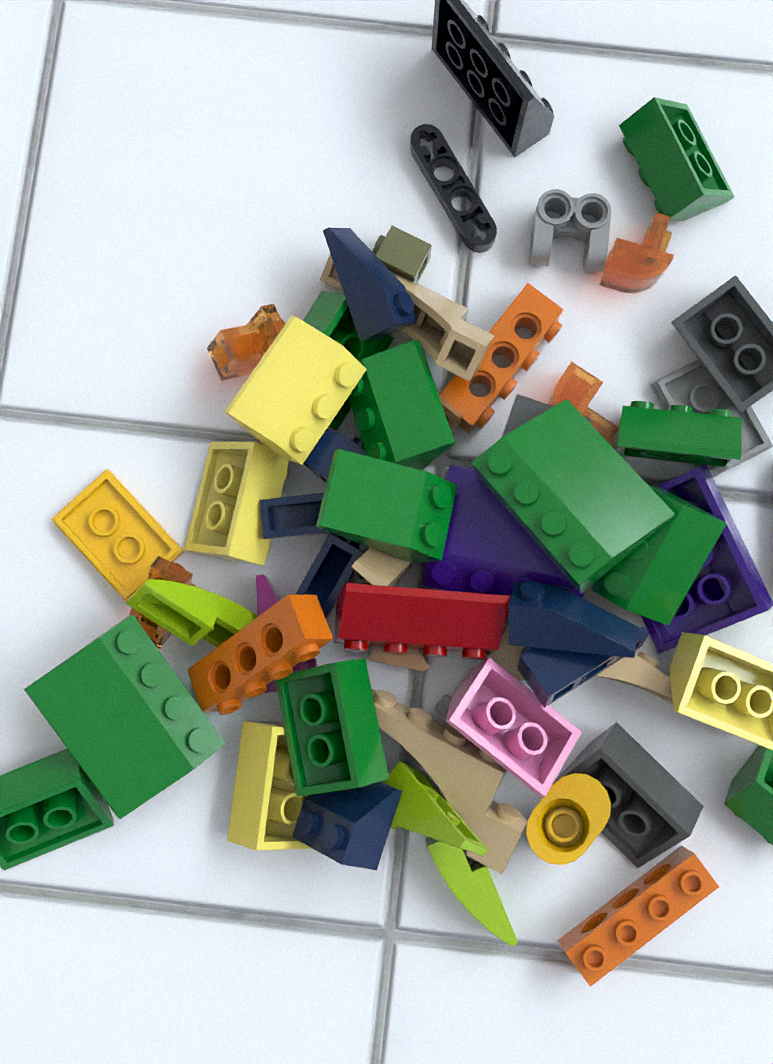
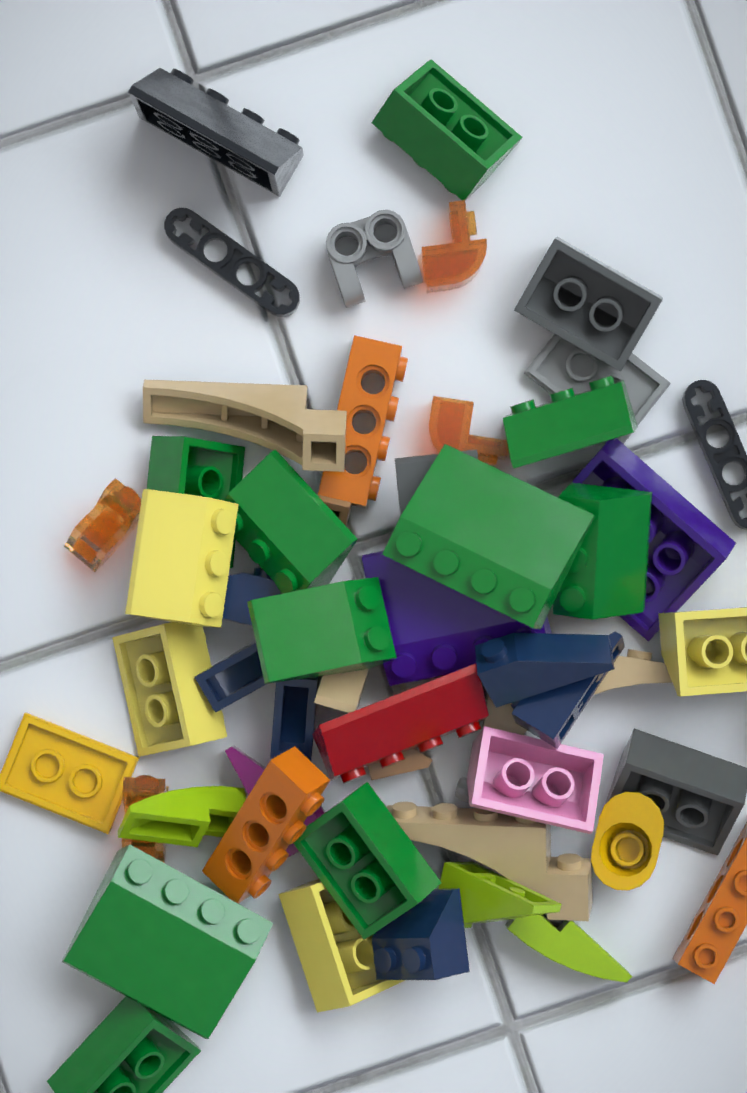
camera: 20 degrees left, 5 degrees up
(371, 290) = (202, 418): dark blue slope -> none
(403, 253) = (214, 360): olive brick -> none

